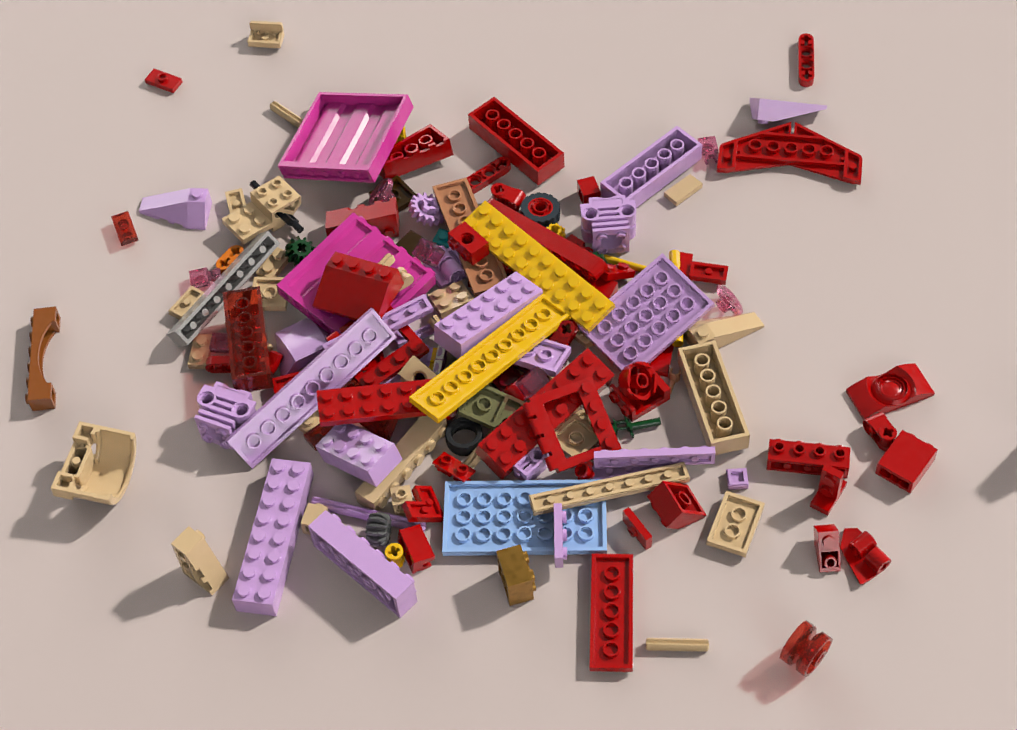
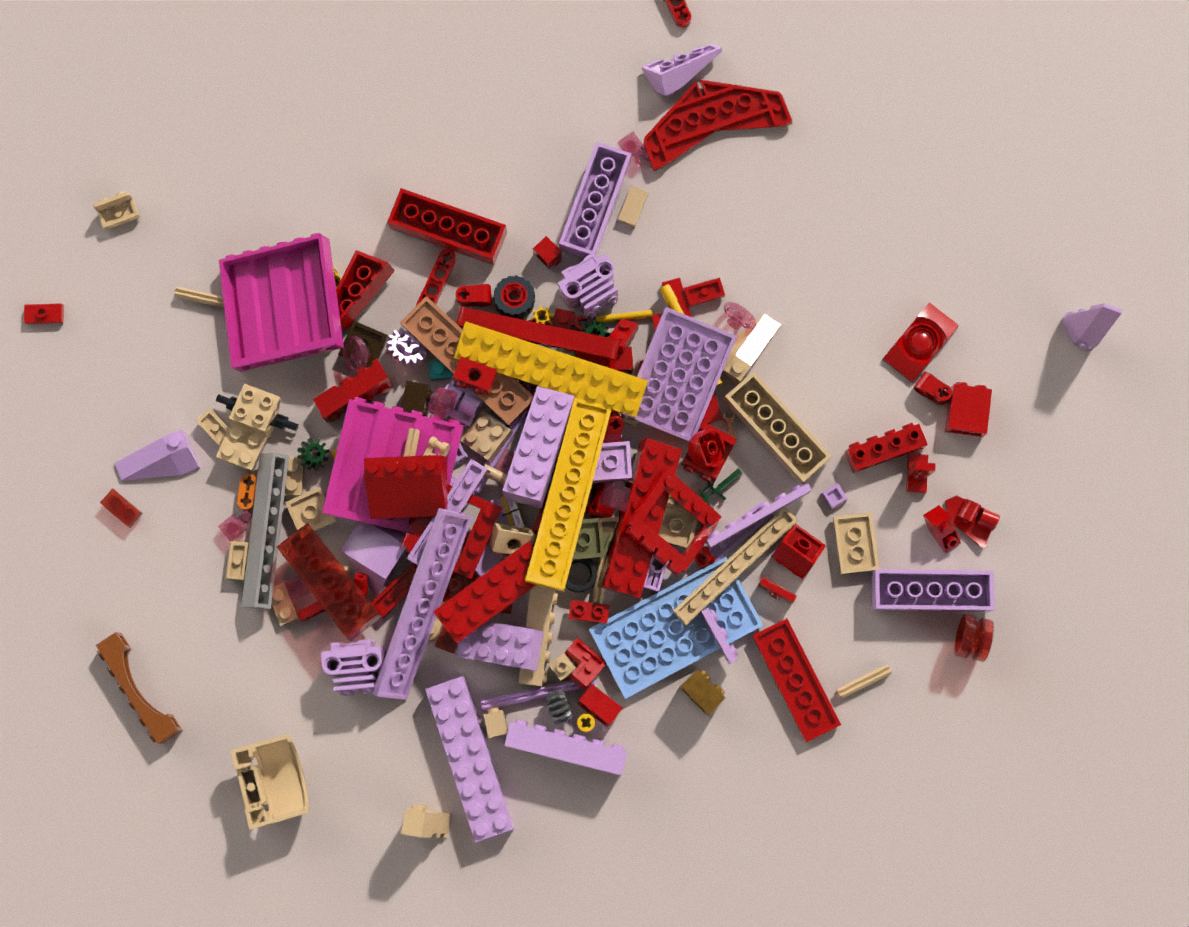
camera: 30 degrees left, 25 degrees up
(787, 591) = (932, 590): none -> lavender brick

